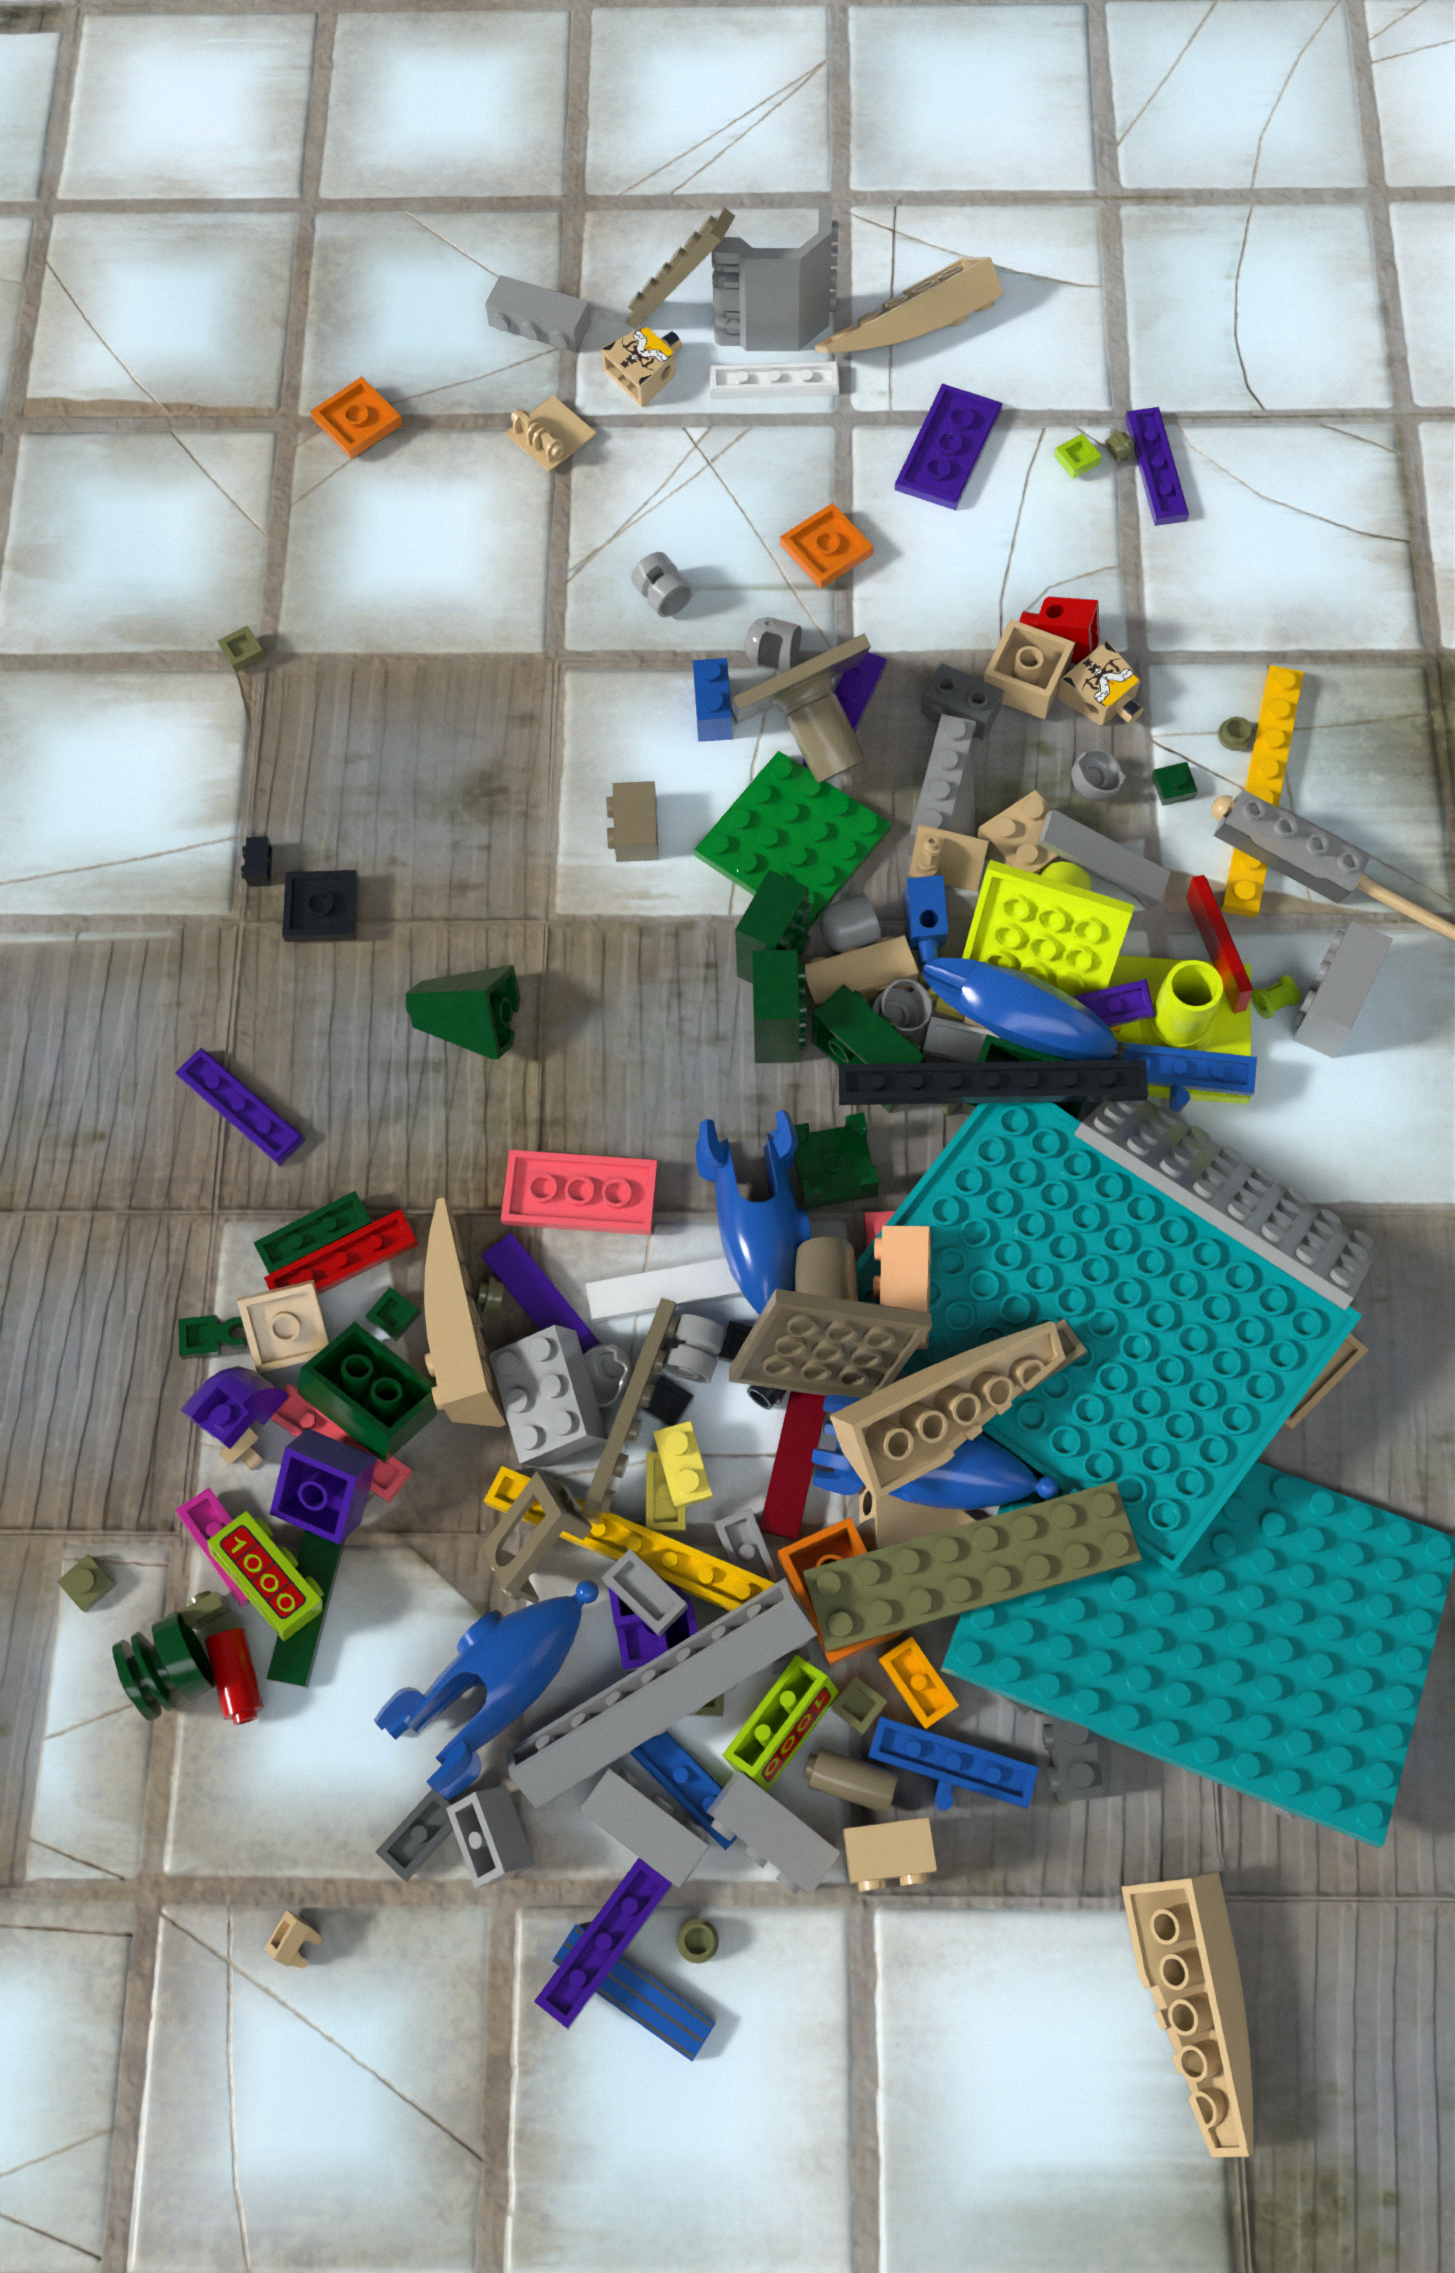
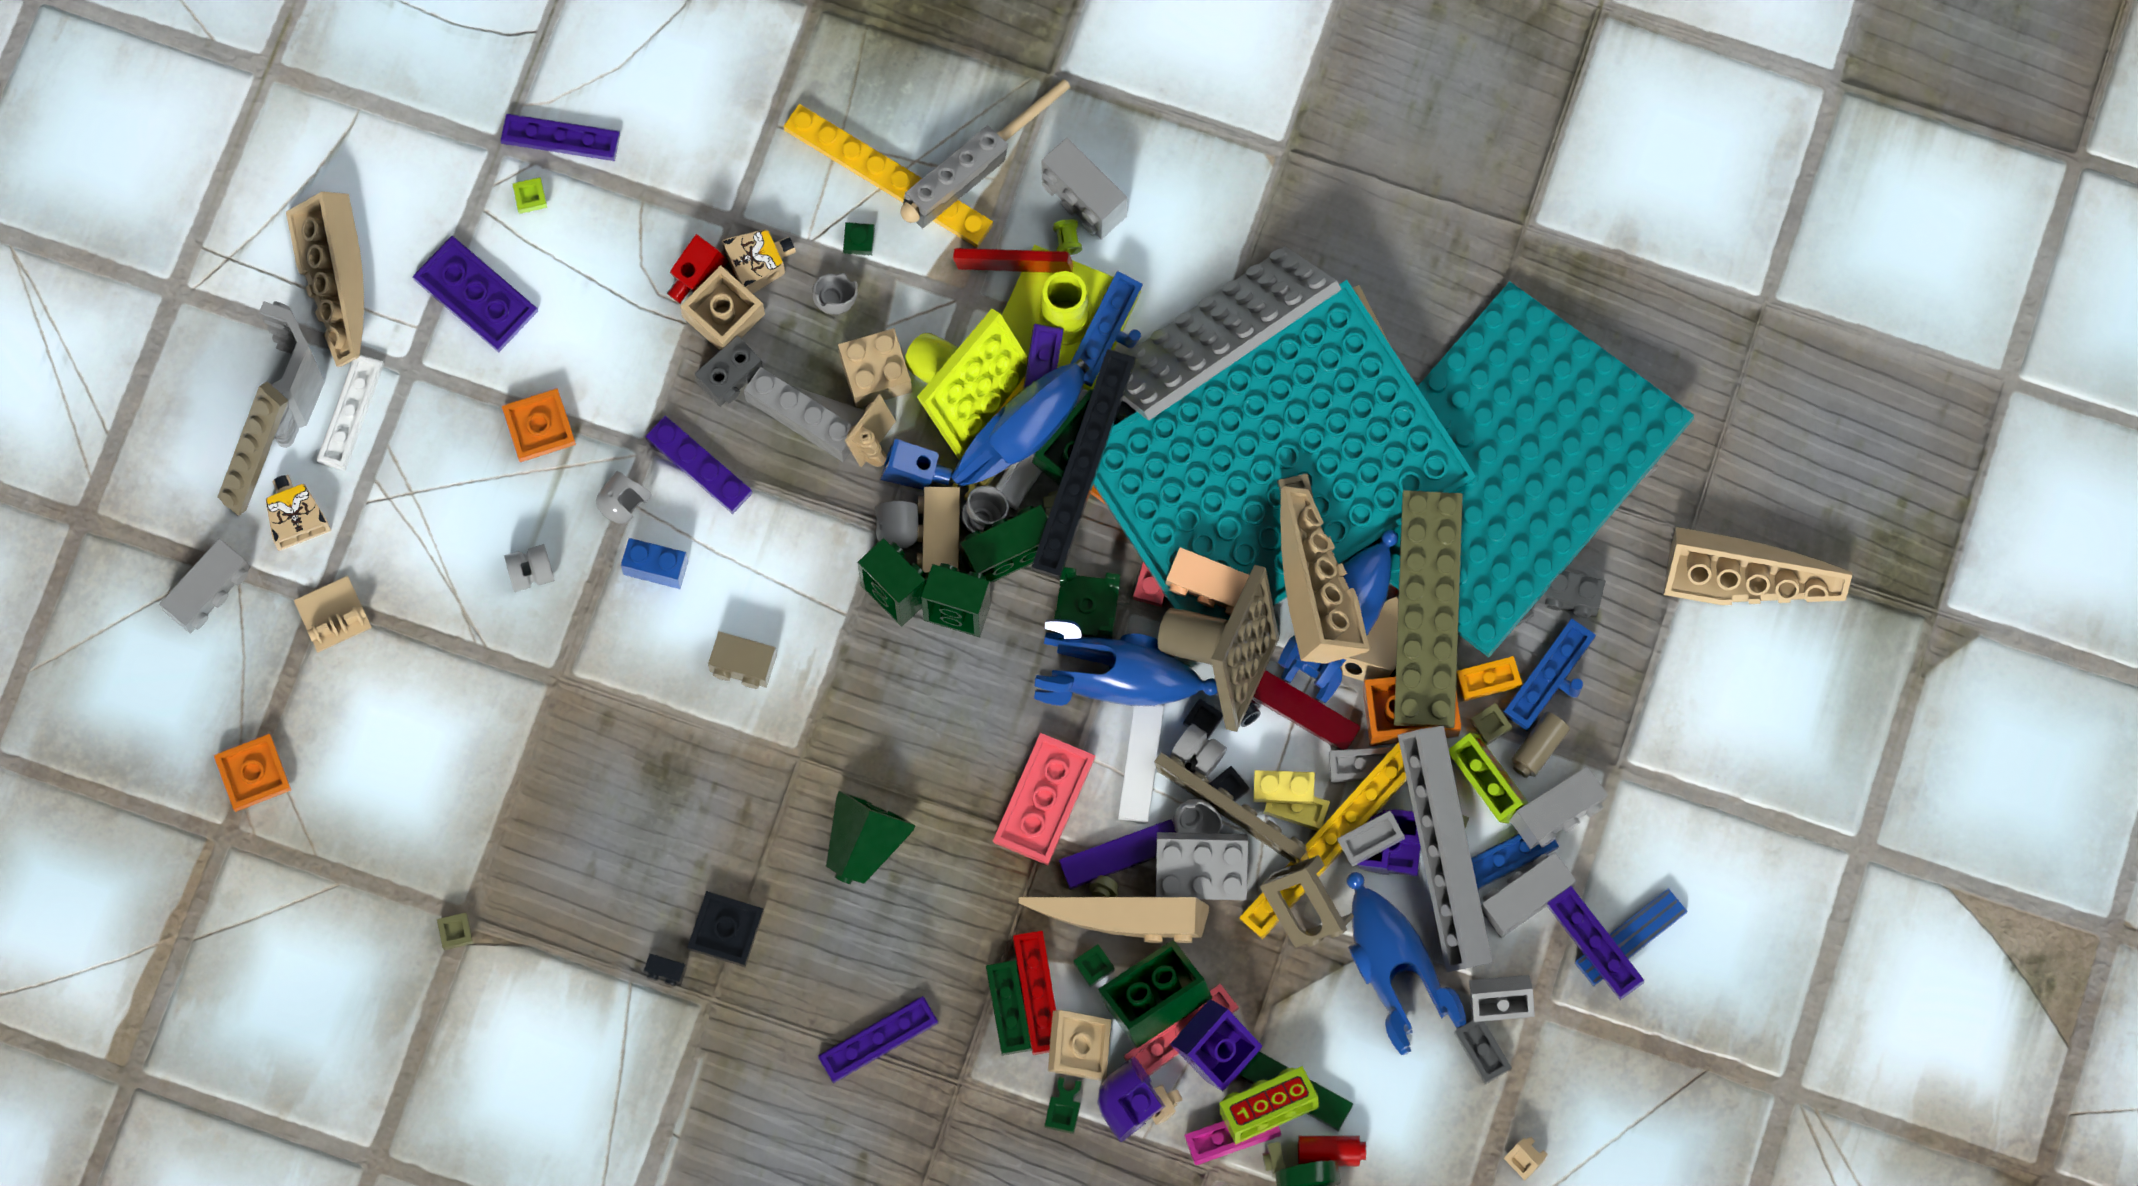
camera: 75 degrees left, 5 degrees up
(697, 1941) = (1612, 884): olive plate -> none
(795, 830) = (798, 544): green plate -> none
(812, 708) = (696, 486): dark tan piece -> none
(889, 1852) = (1597, 733): tan brick -> none
(1103, 857) = (913, 315): light grey tile -> none
(1119, 446) = (533, 158): olive plate -> none
(1235, 734) = (833, 176): olive plate -> none

